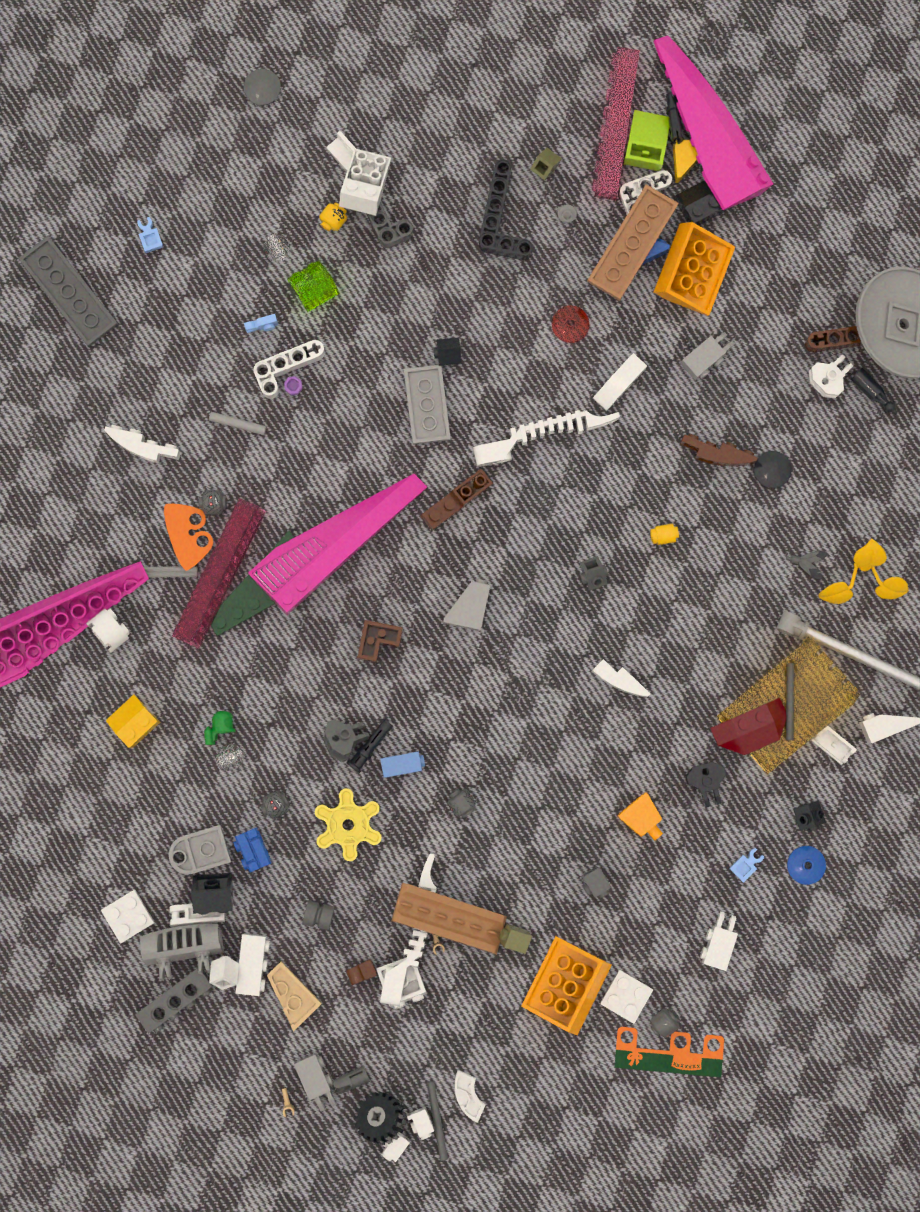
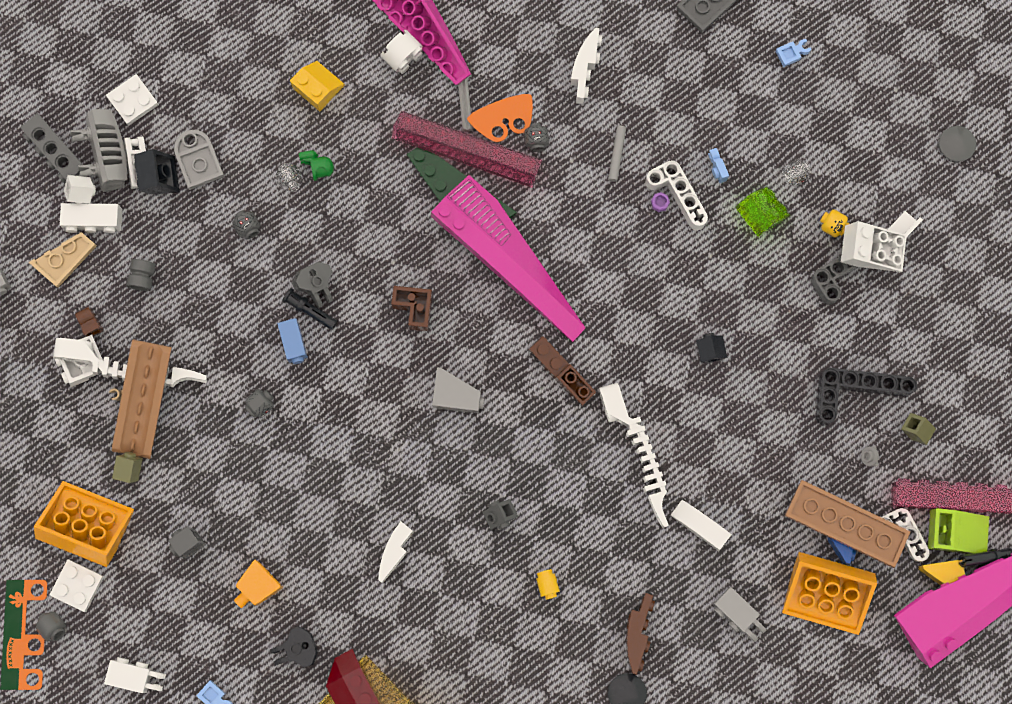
camera: 90 degrees right, 5 degrees down
(252, 849) = (201, 207): blue brick -> none
(337, 834) = (224, 284): light yellow plate -> none
(427, 404) = (656, 333): light grey plate -> none
(569, 333) = (747, 475): clear red dish -> none
(698, 203) = (897, 591): black slope -> none

